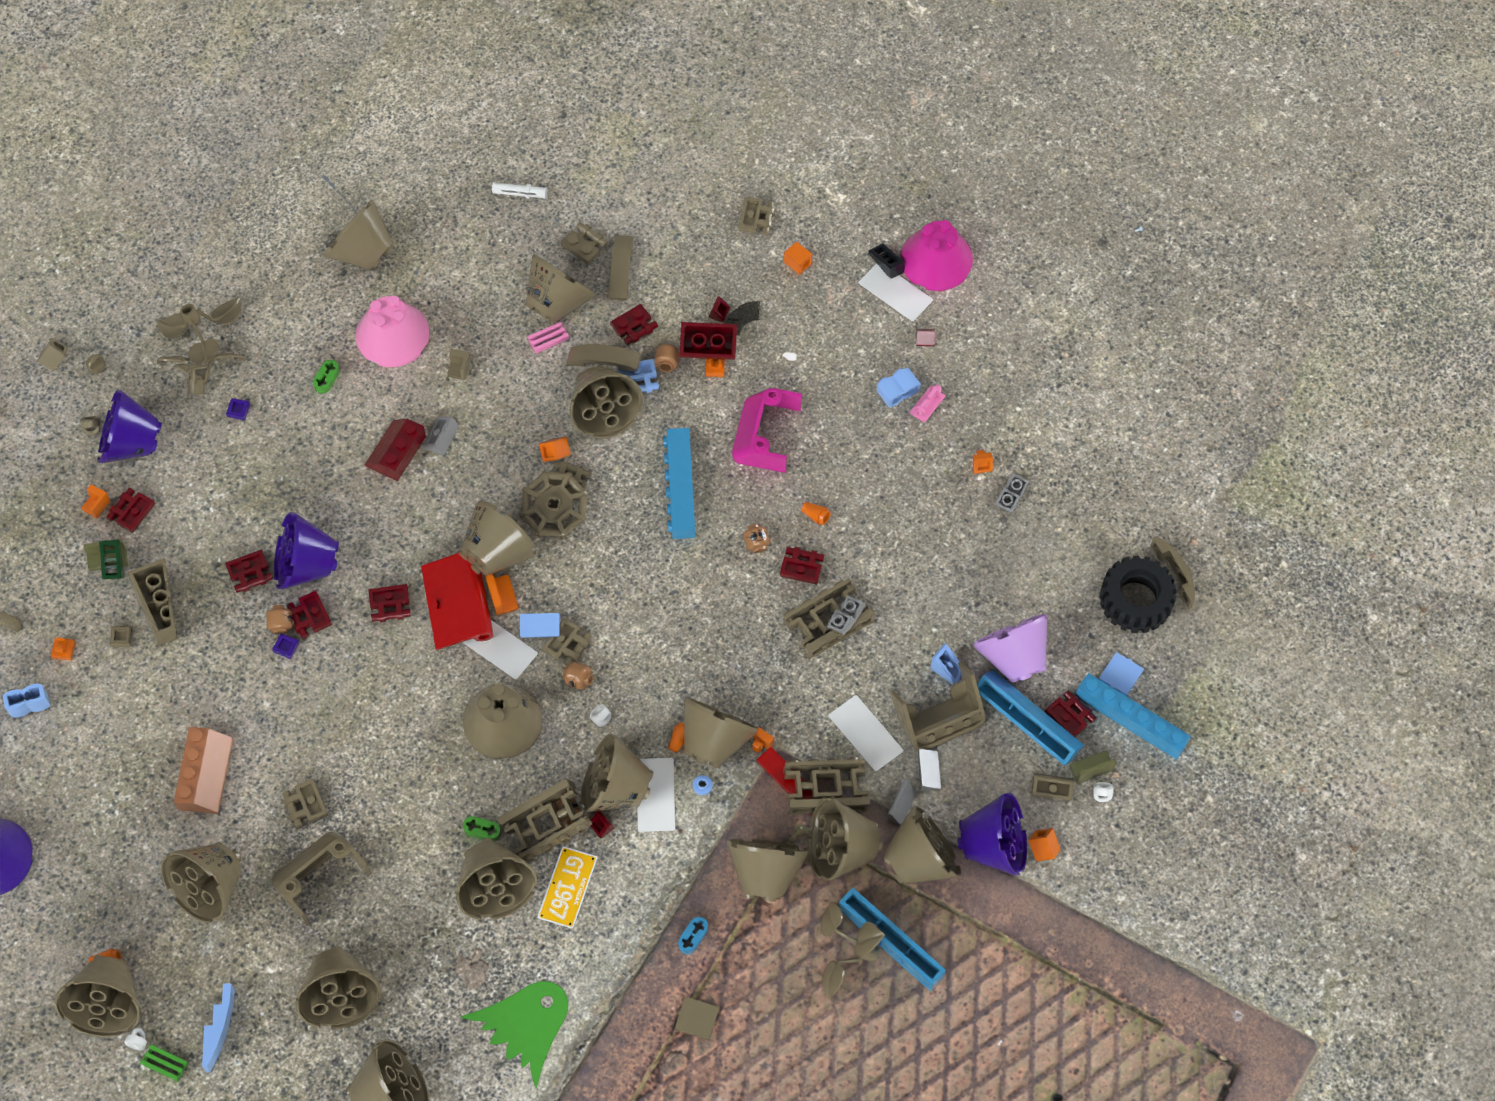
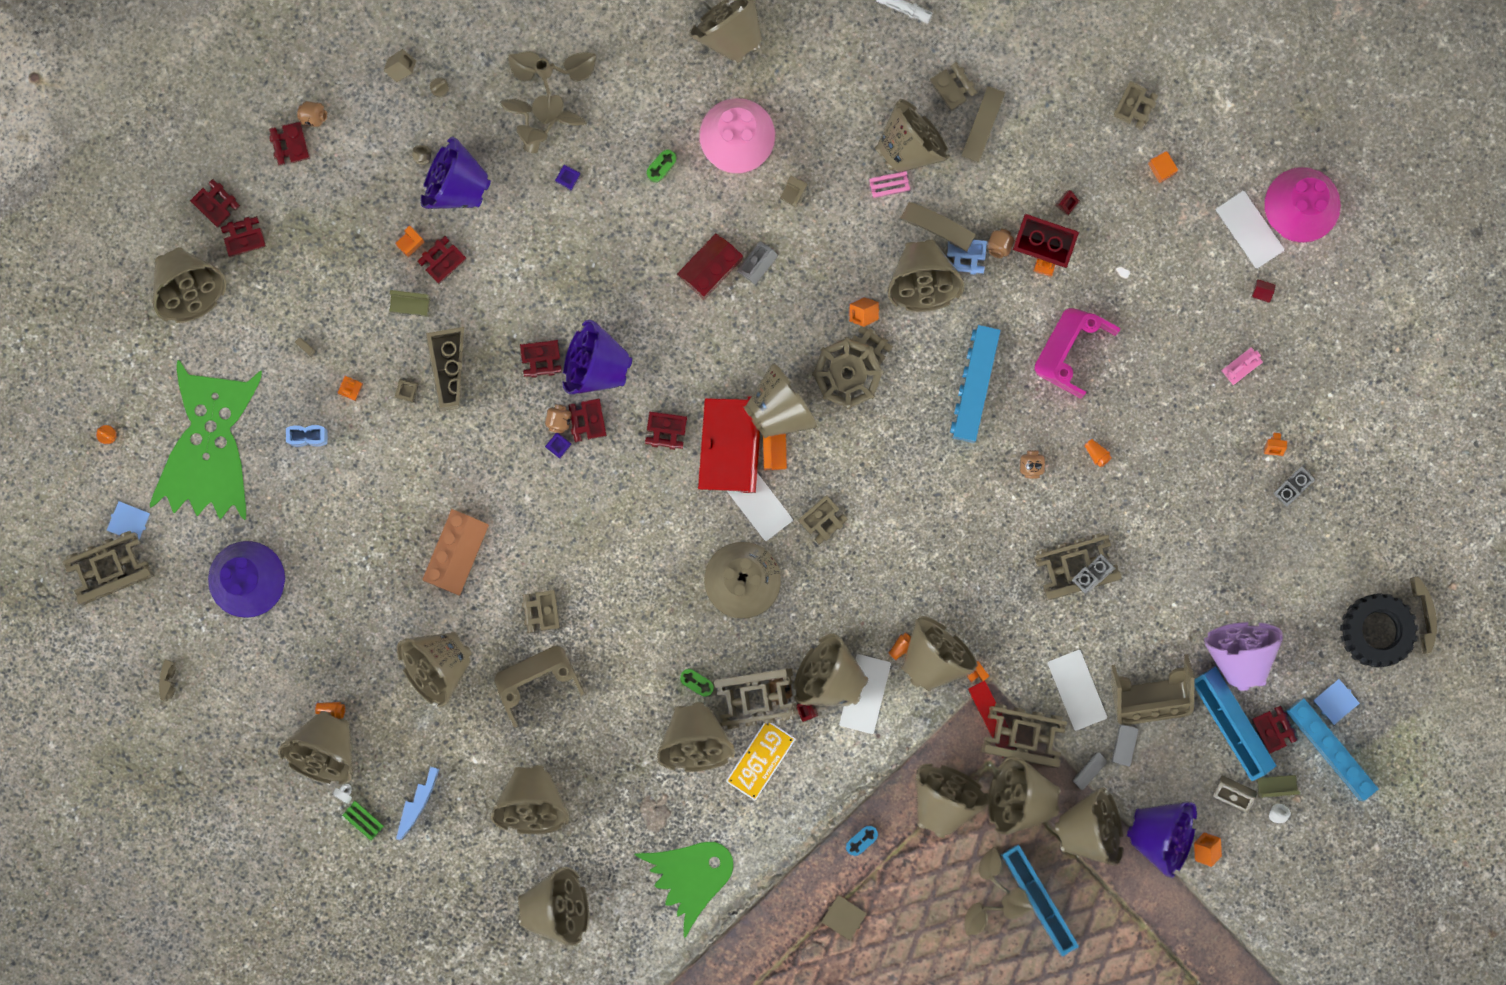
camera: 15 degrees right, 20 degrees up
(119, 563) = (410, 326): dark green slope -> none
(539, 625) = (801, 496): light blue panel -> none
(577, 676) = (824, 558): medium nougat head -> none
(600, 715) = (834, 602): white tile -> none
(630, 321) = (976, 189): dark red plate -> none
(702, 790) = (905, 703): light blue plate -> none
(743, 315) = (1087, 215): clear smoke tile -> none
(802, 570) = (1066, 509): dark red plate -> none
(888, 261) = (1256, 204): black slope -> none
(898, 387) = (1219, 340): light blue brick -> none
(946, 664) = (1174, 648): light blue slope -> none

